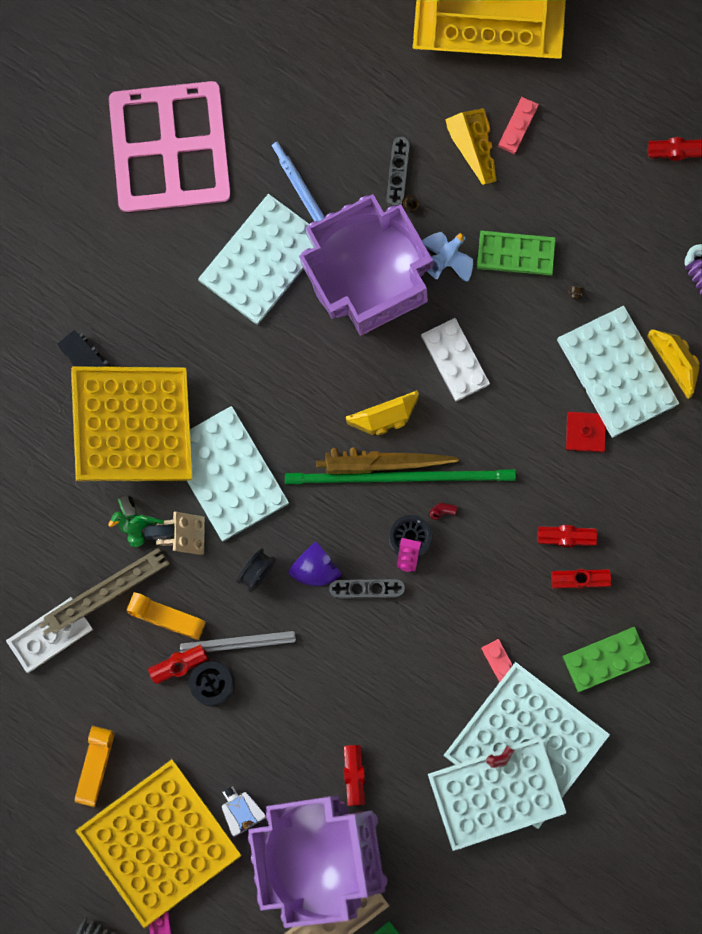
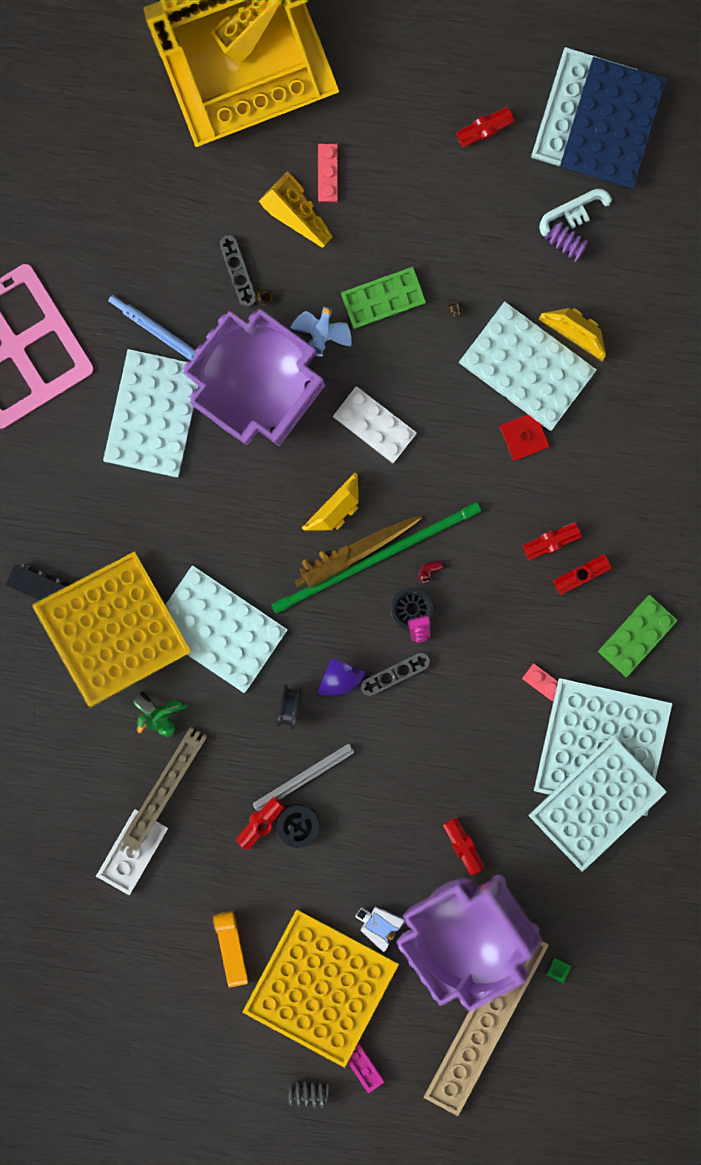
camera: 25 degrees left, 10 degrees up
(164, 616) = (228, 786): light orange beam -> none
(185, 536) = (210, 702): tan plate -> none
(500, 760) = (588, 774): dark red arm -> none

